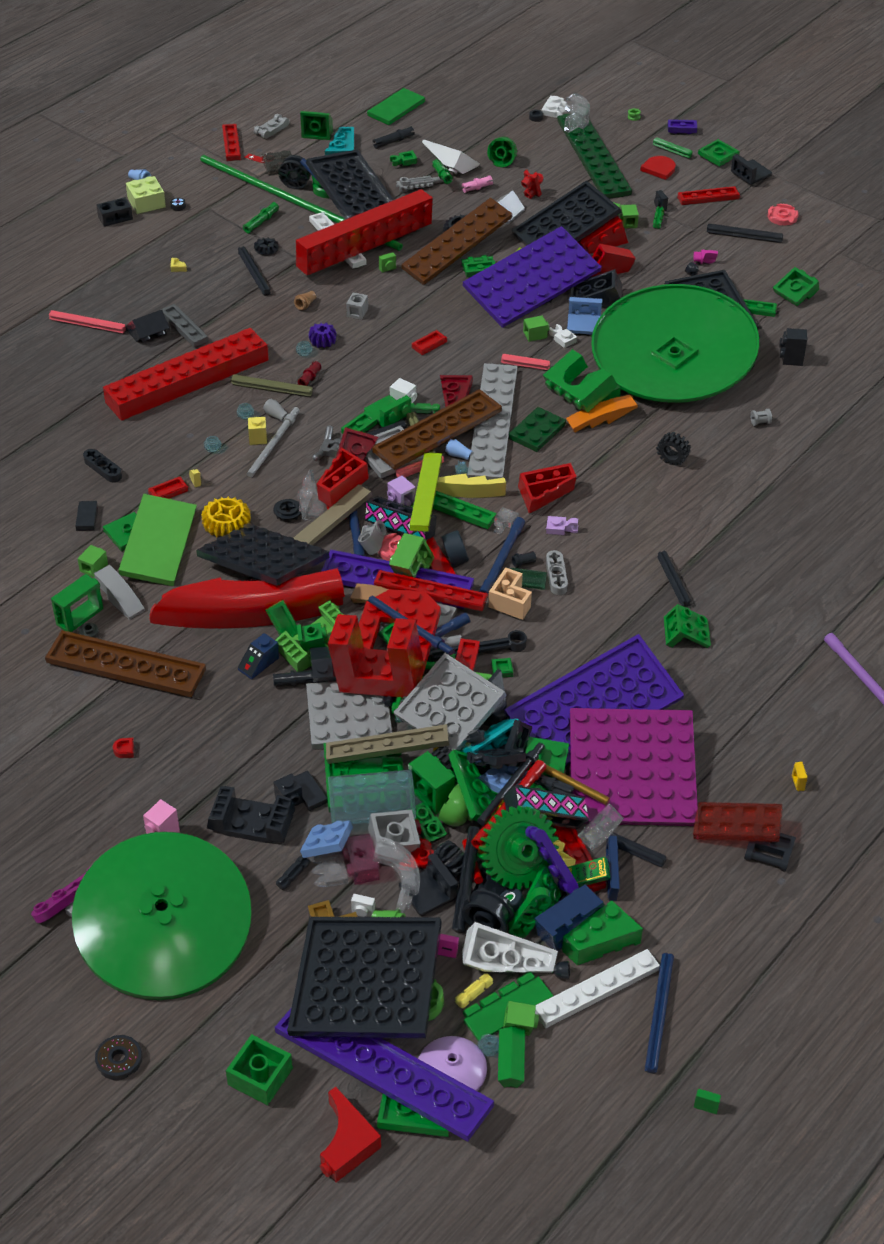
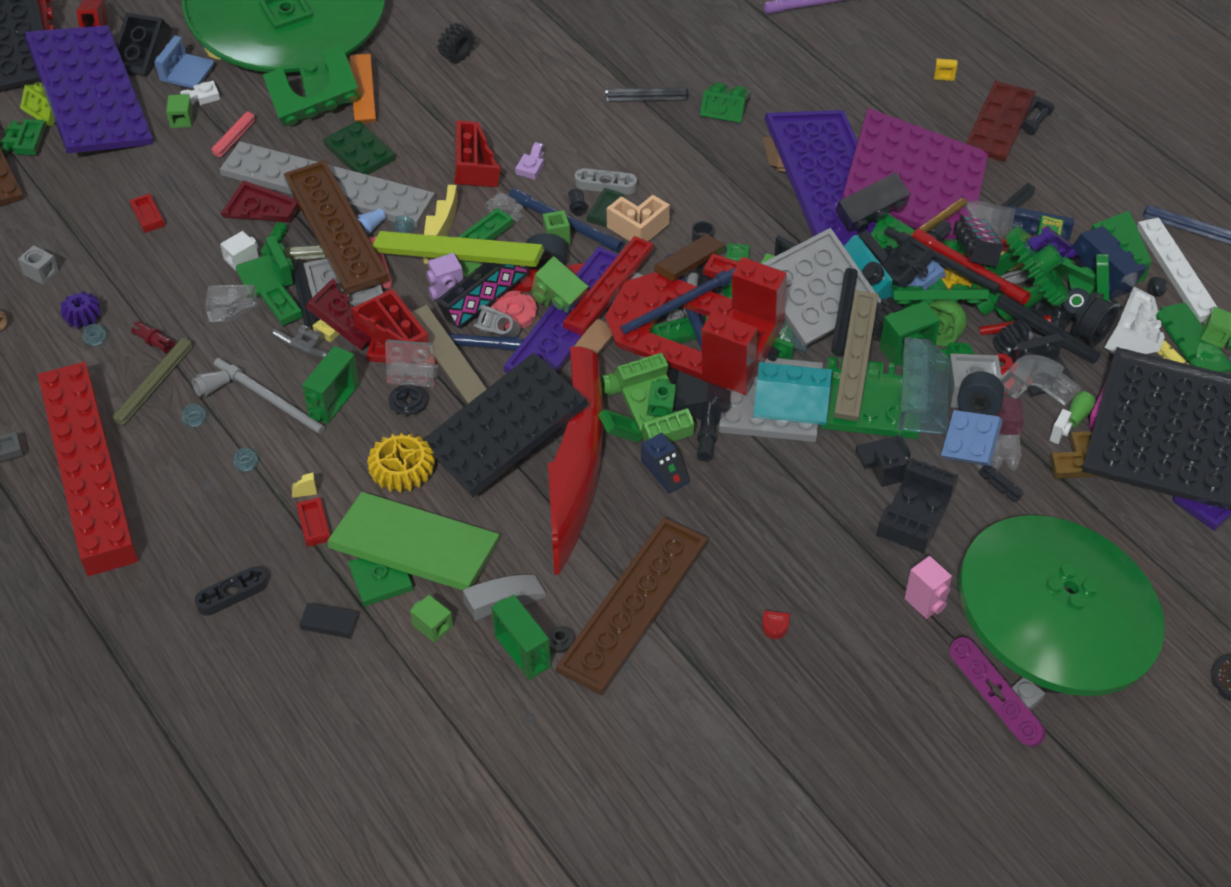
camera: 75 degrees left, 5 degrees up
(257, 430) = (246, 404): light yellow brick -> none
(276, 473) = (331, 385): none -> green window
(339, 713) = (792, 393): none -> teal slope
(350, 398) = (229, 301): none -> clear slope
(361, 829) = (981, 393): none -> black wheel
(451, 721) = (844, 311): none -> black axle
(466, 625) = (688, 257): none -> reddish brown tile
(481, 548) = (557, 224): none -> bright green brick
(563, 726) = (873, 202): none -> black brick

